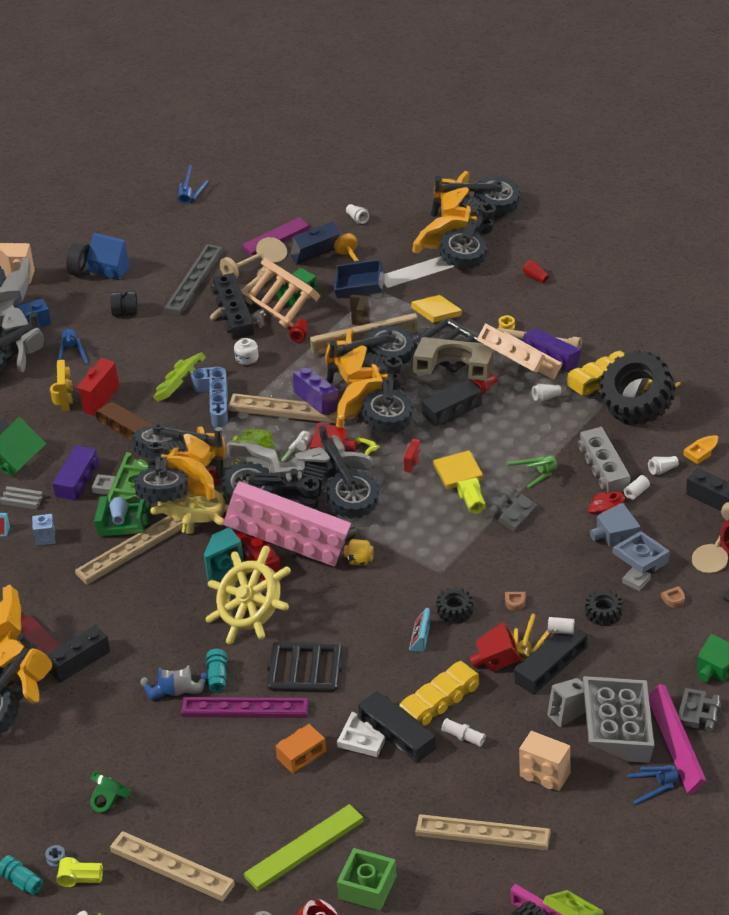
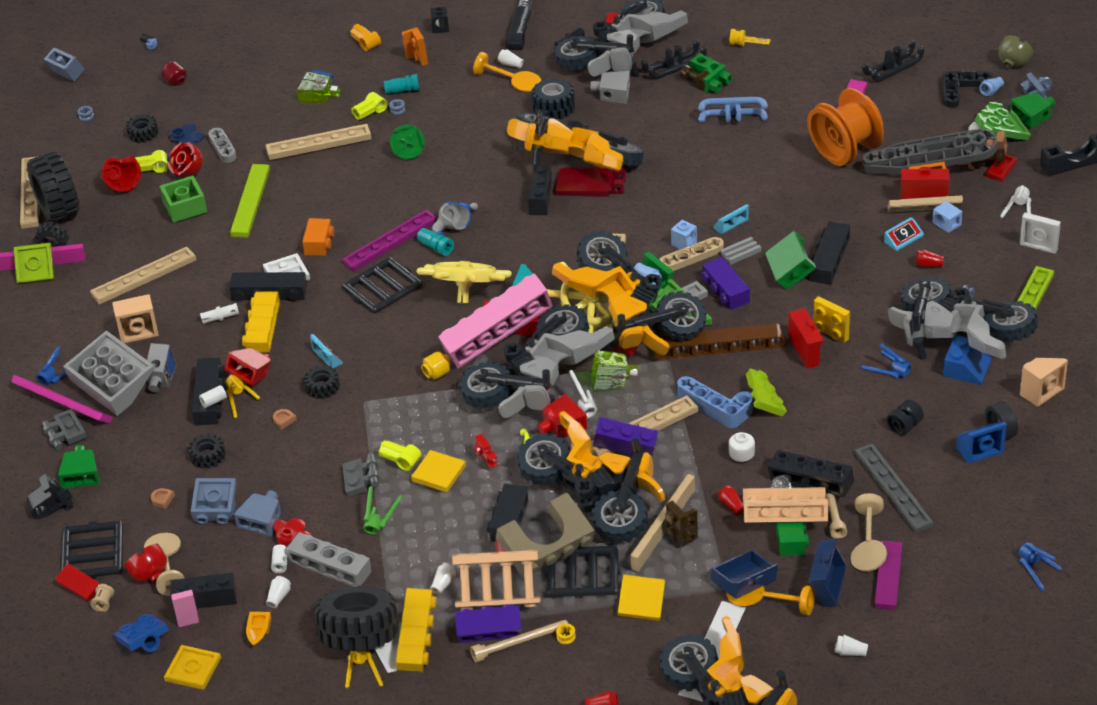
camera: 135 degrees right, 0 degrees up
(80, 522) = (709, 247): none -> tan beam

